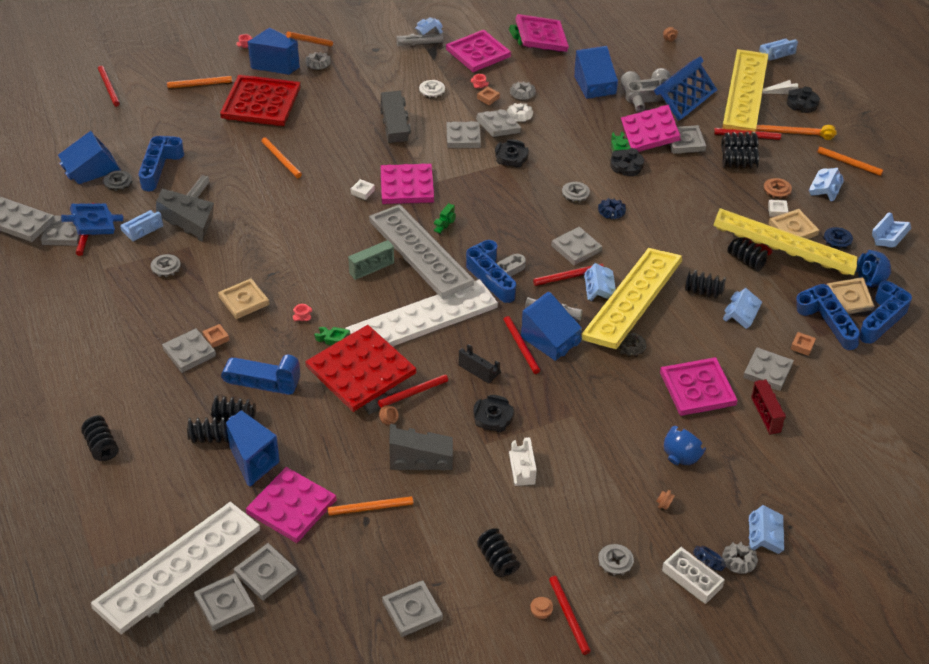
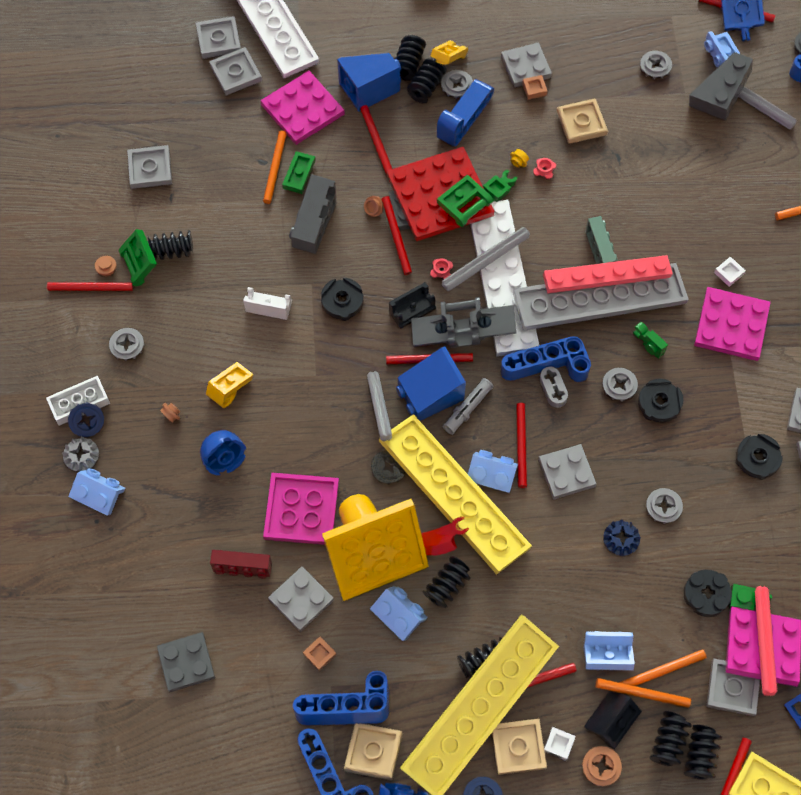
camera: 110 degrees right, 20 degrees up
(200, 393) = (448, 52): none -> yellow plate
(224, 386) = (454, 77): none -> light grey gear
(298, 330) = (519, 158): none -> yellow plate
(312, 435) = (376, 138): none -> red bar
(368, 340) = (460, 195): none -> green plate
(372, 481) = (298, 172): none -> green plate
(402, 245) = (607, 274): none -> coral plate
(417, 321) = (485, 259): none -> light grey axle
(432, 355) = (441, 263): none -> coral plate
(489, 225) = (620, 375): none -> light grey gear
(492, 324) = (463, 332): none -> dark grey piece
(500, 207) = (653, 410): none -> black plate
(521, 569) = (137, 257): none -> green plate
(586, 354) = (379, 406): none -> light grey axle
(623, 463) = (225, 385): none -> yellow plate
(651, 120) = (765, 639): none -> coral axle
(676, 296) = (442, 539): none -> red piece
(695, 174) = (665, 669): none -> orange bar
(702, 196) = (608, 651): none -> light blue bracket
(709, 315) = (374, 545): none -> yellow piece
(717, 177) = (643, 693): none -> orange bar
(742, 189) = (613, 718): none -> black panel
(862, 424) = (186, 662): none -> dark grey plate

